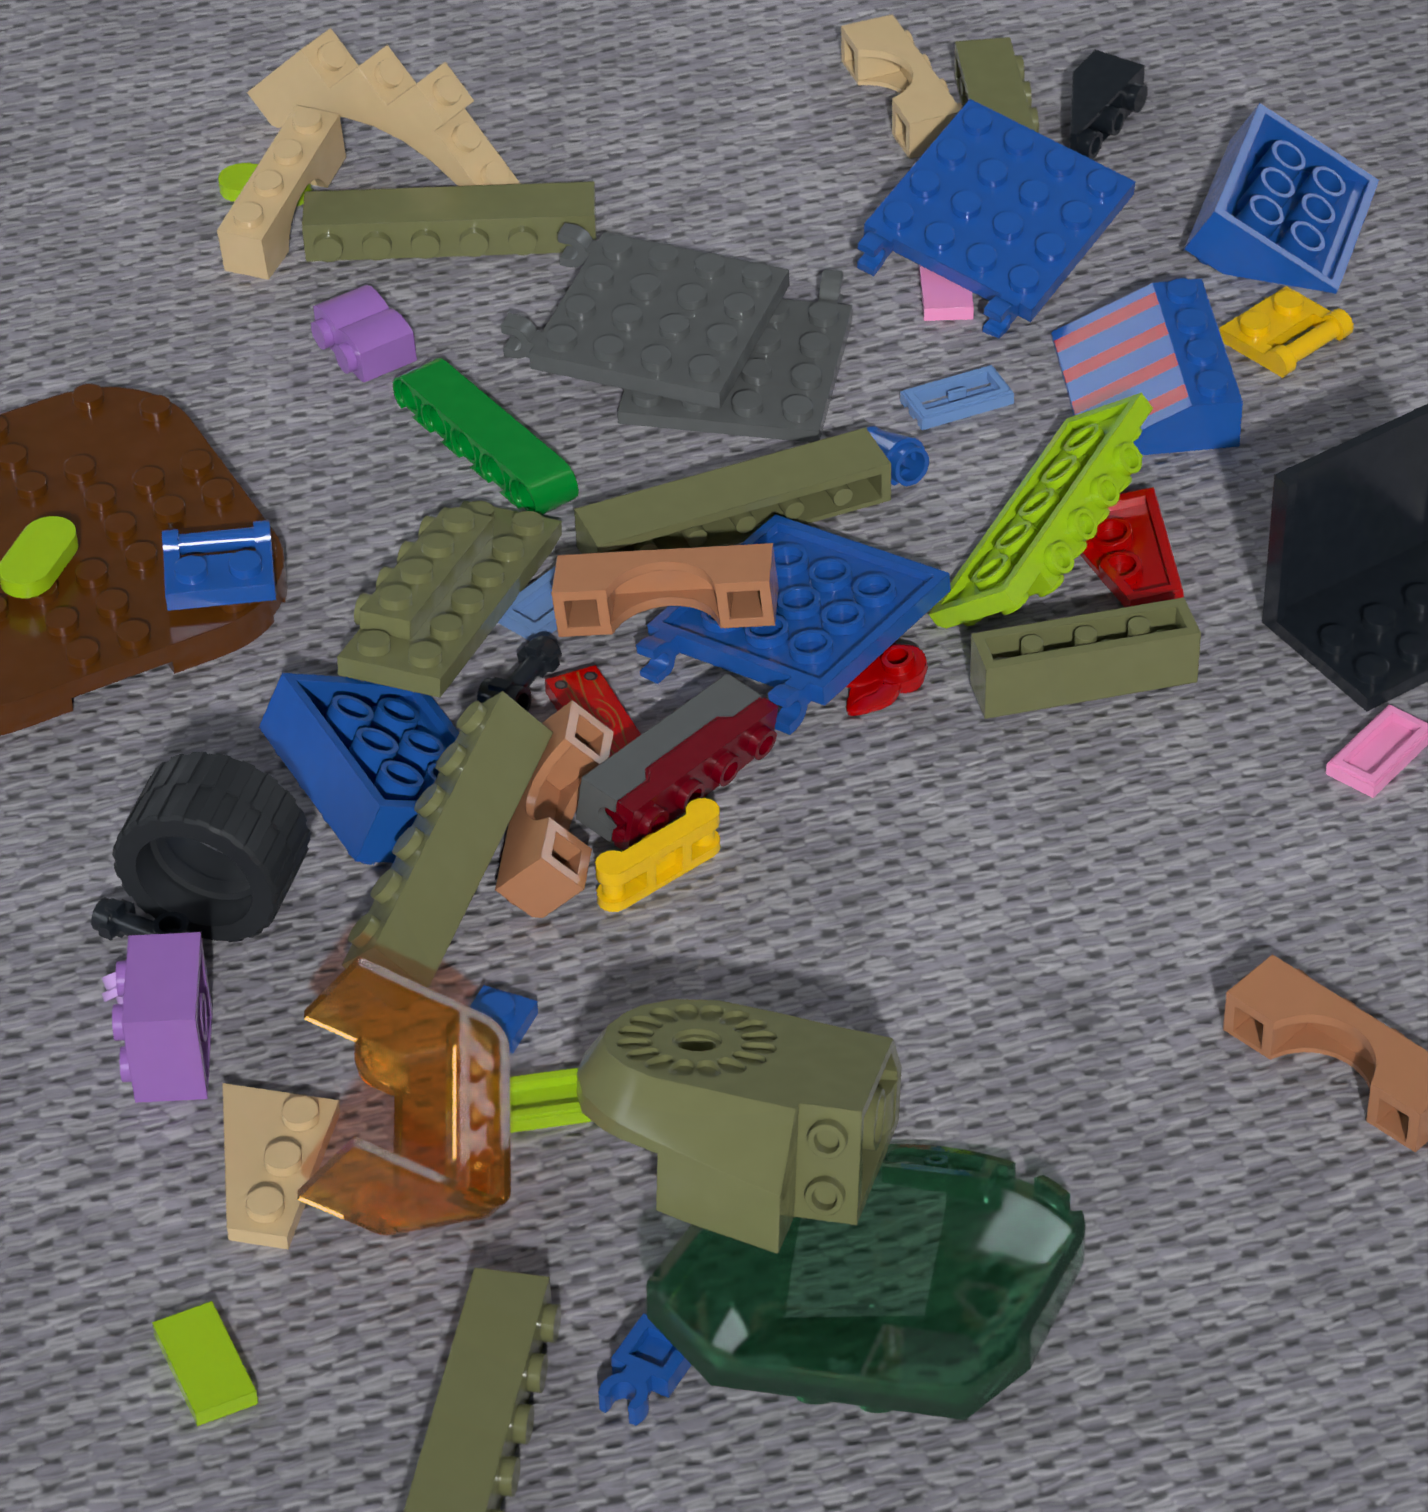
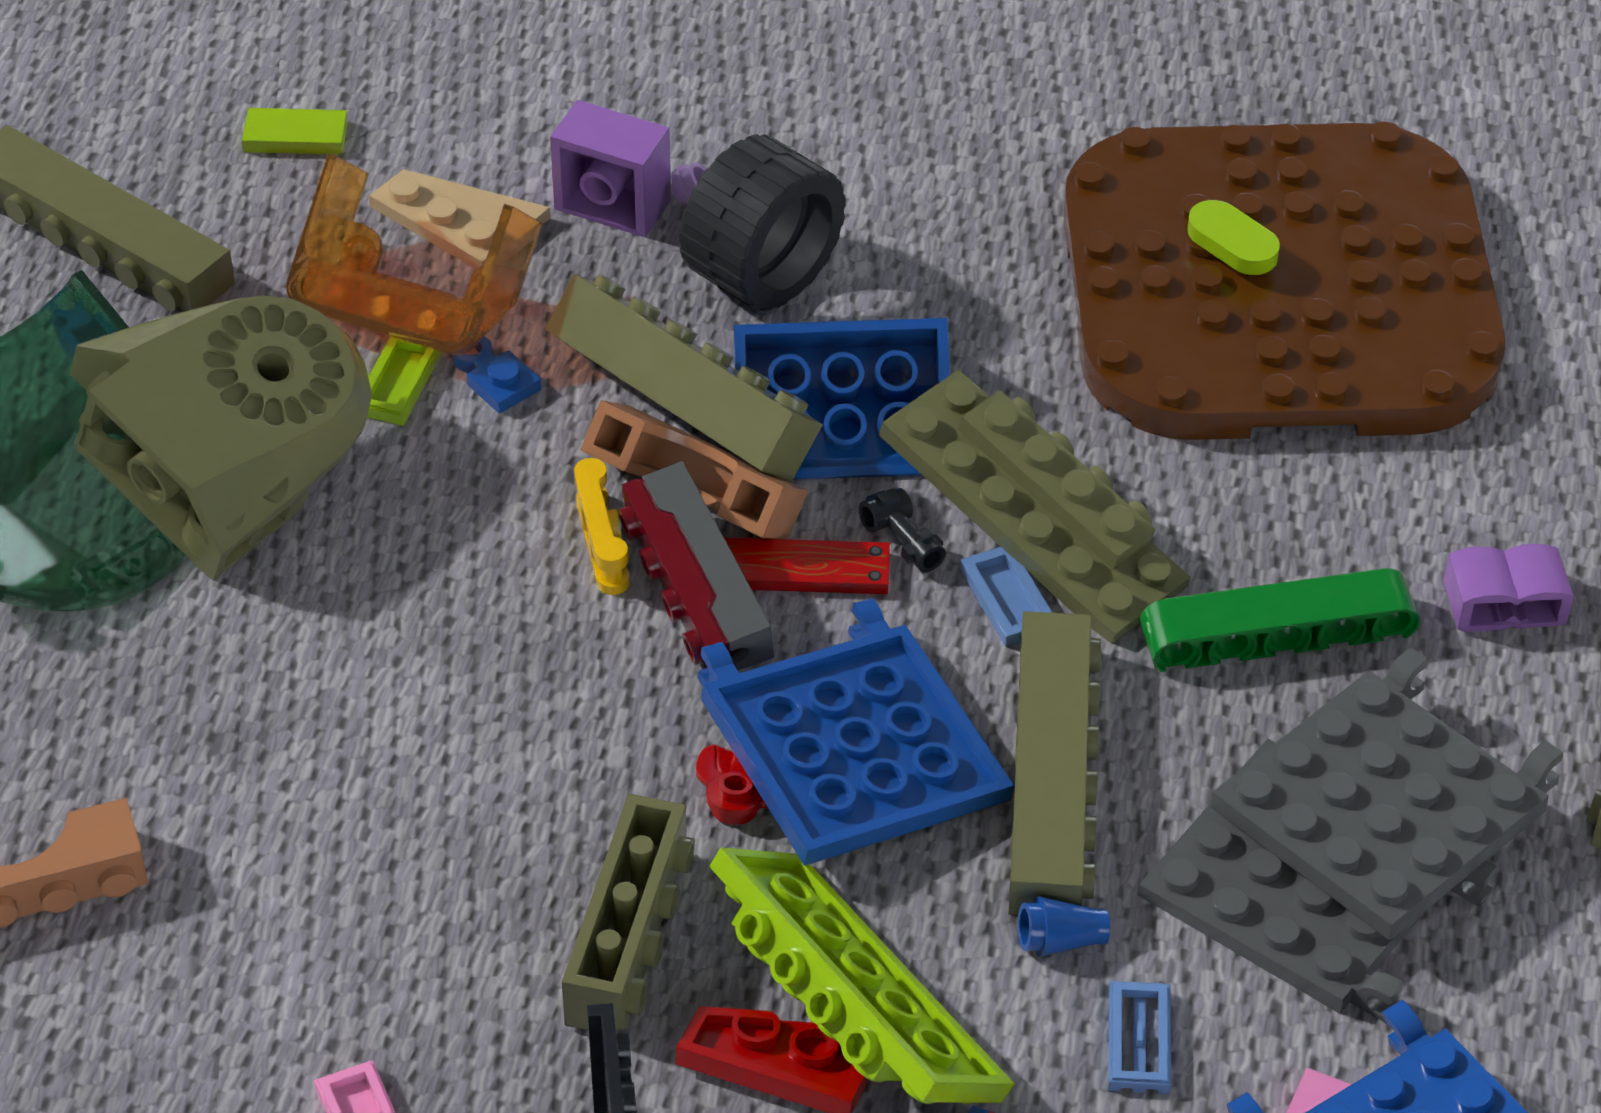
camera: 115 degrees right, 5 degrees up
(218, 578) = (1131, 335): blue plate -> none
(605, 589) = (888, 667): nougat arch -> none

